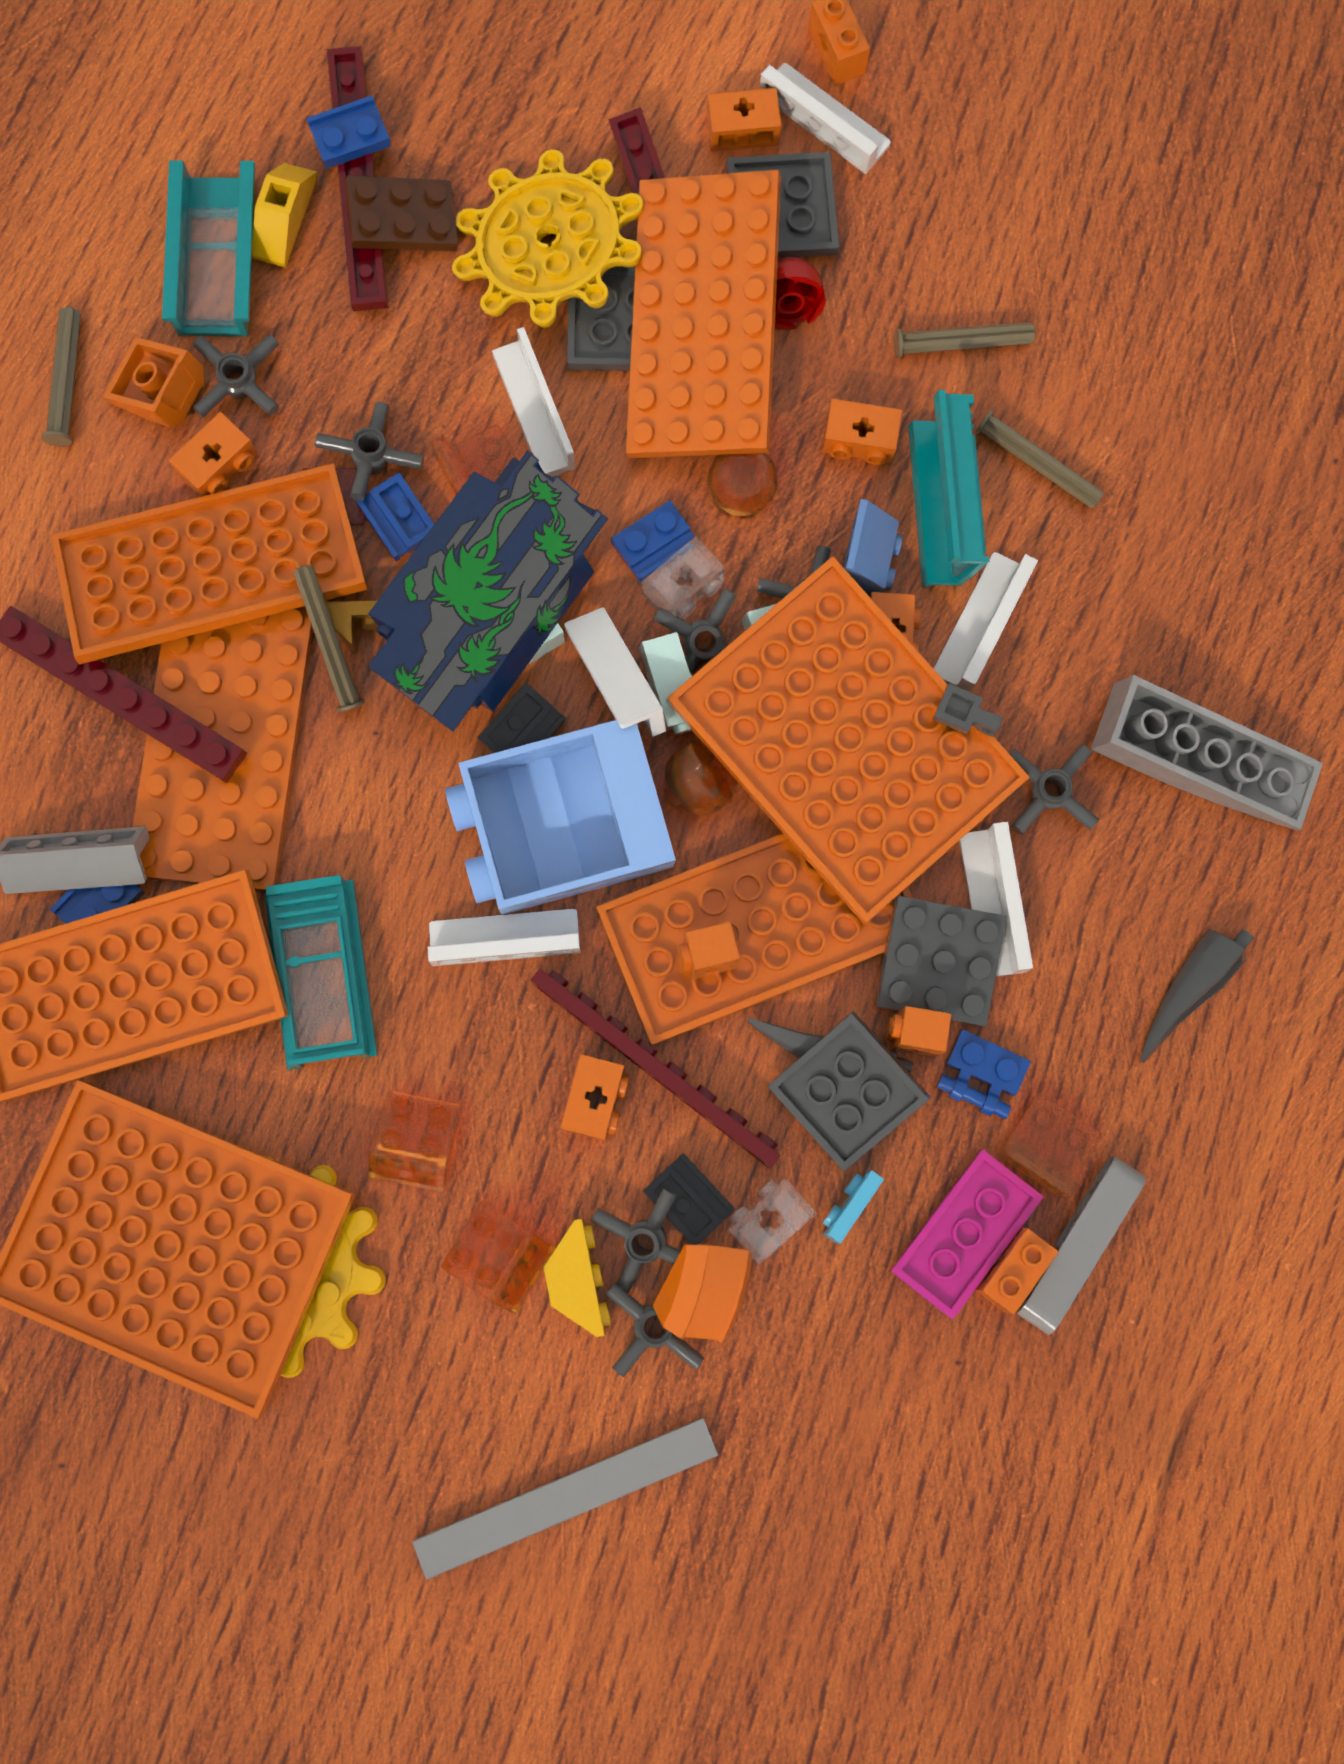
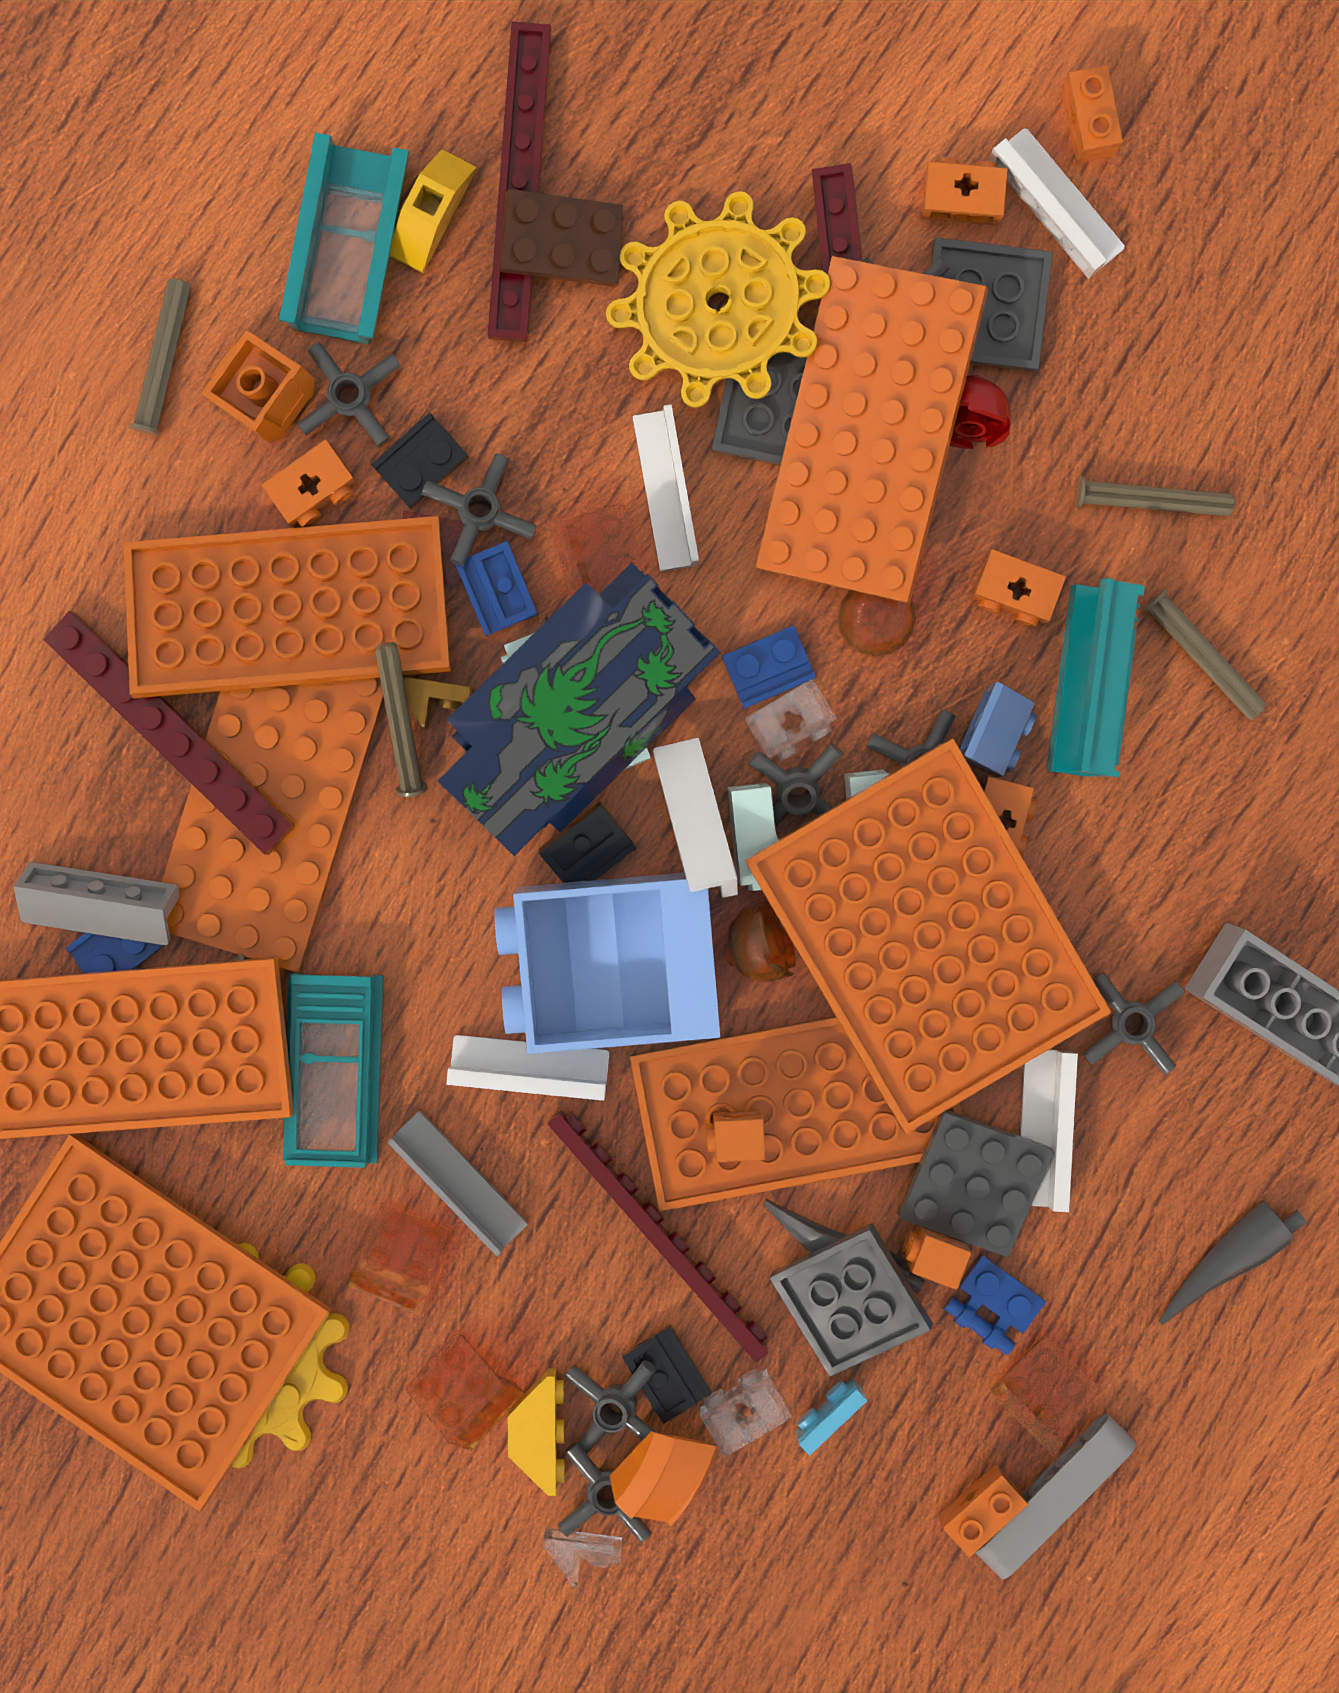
camera: 20 degrees right, 10 degrees up
(309, 413) = (419, 456): none -> black plate
(348, 132) = (519, 130): blue plate -> none
(457, 1055) = (458, 1182): none -> light grey panel
(564, 1498) = (488, 1637): light grey tile -> none
(578, 1114) = (572, 1268): orange brick -> none
(627, 1390) = (568, 1551): none -> clear slope
(961, 710) = (1054, 933): dark grey plate -> none
(966, 1234) = (941, 1462): dark pink plate -> none
(983, 620) = (1103, 824): white panel -> none

